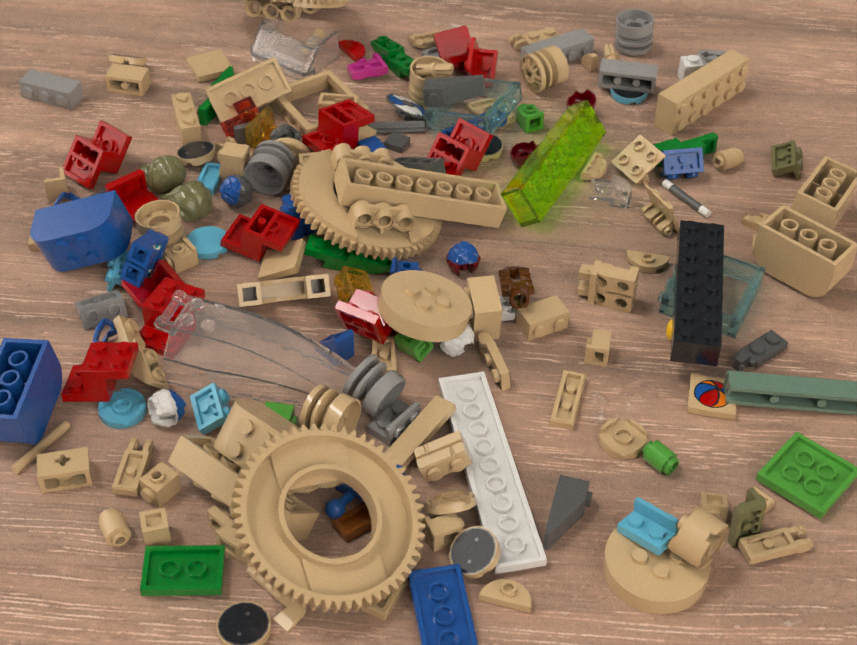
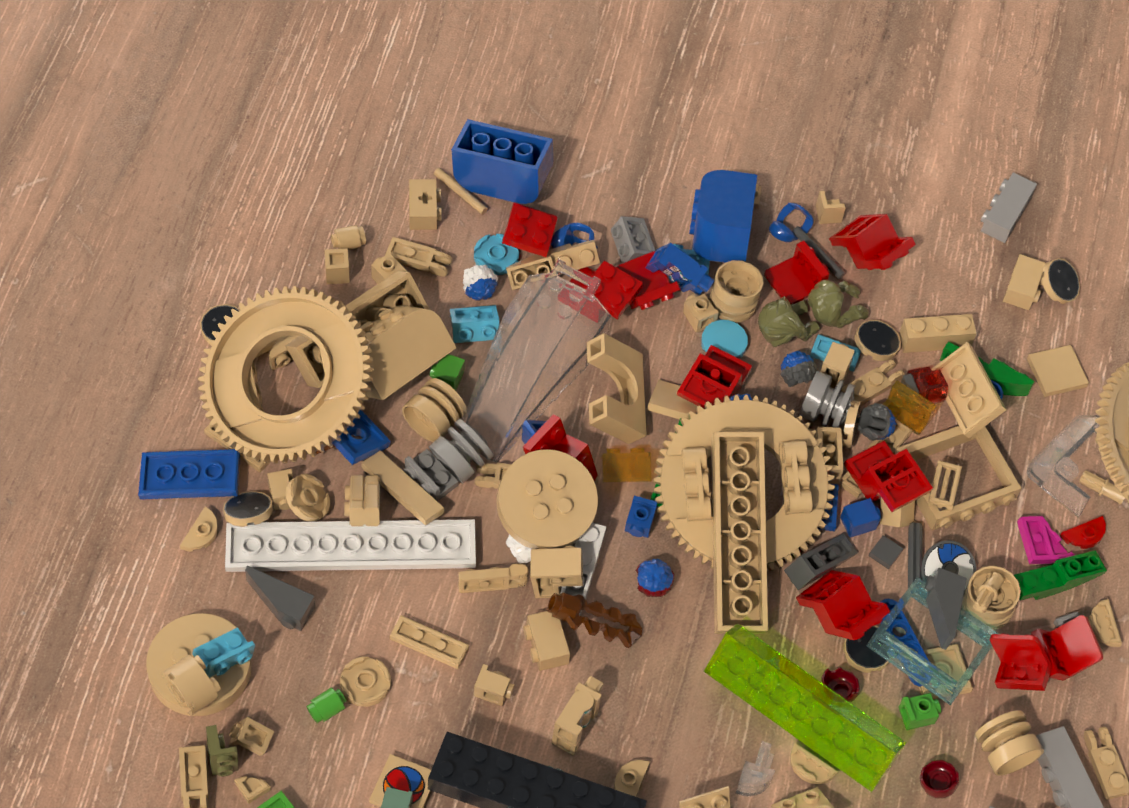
camera: 95 degrees right, 15 degrees up
(183, 570) = (292, 271): green plate -> none

